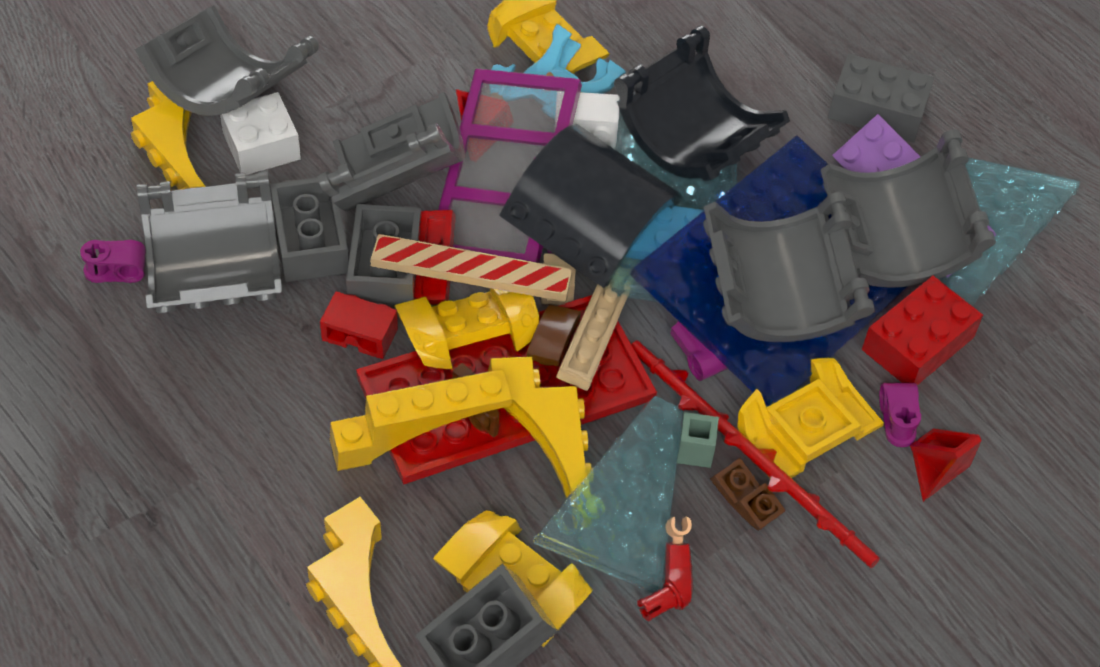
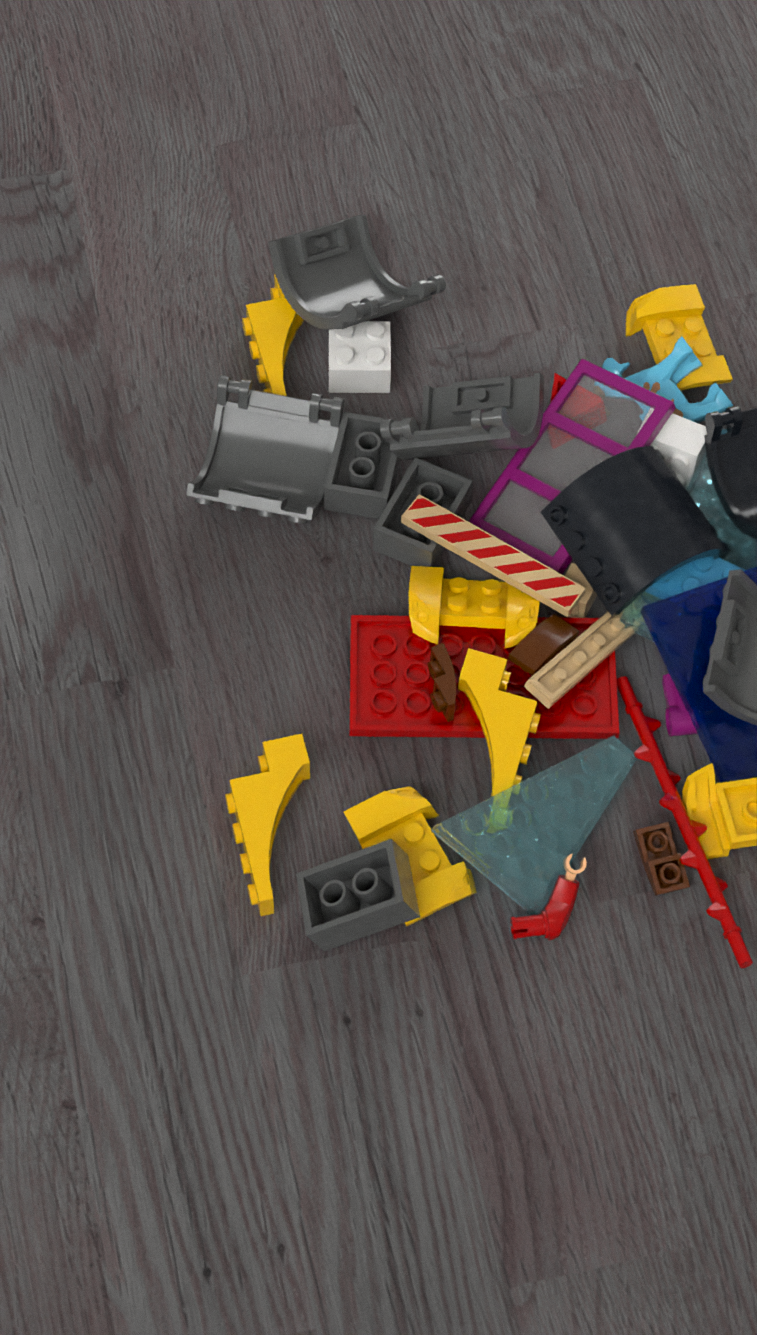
camera: 25 degrees right, 5 degrees up
(116, 261) = (180, 441): magenta piece -> none
(359, 324) = (373, 573): red brick -> none
(411, 411) = (375, 673): yellow arch -> none
(435, 228) = (480, 510): red plate -> none
(697, 440) = (634, 791): sand green brick -> none

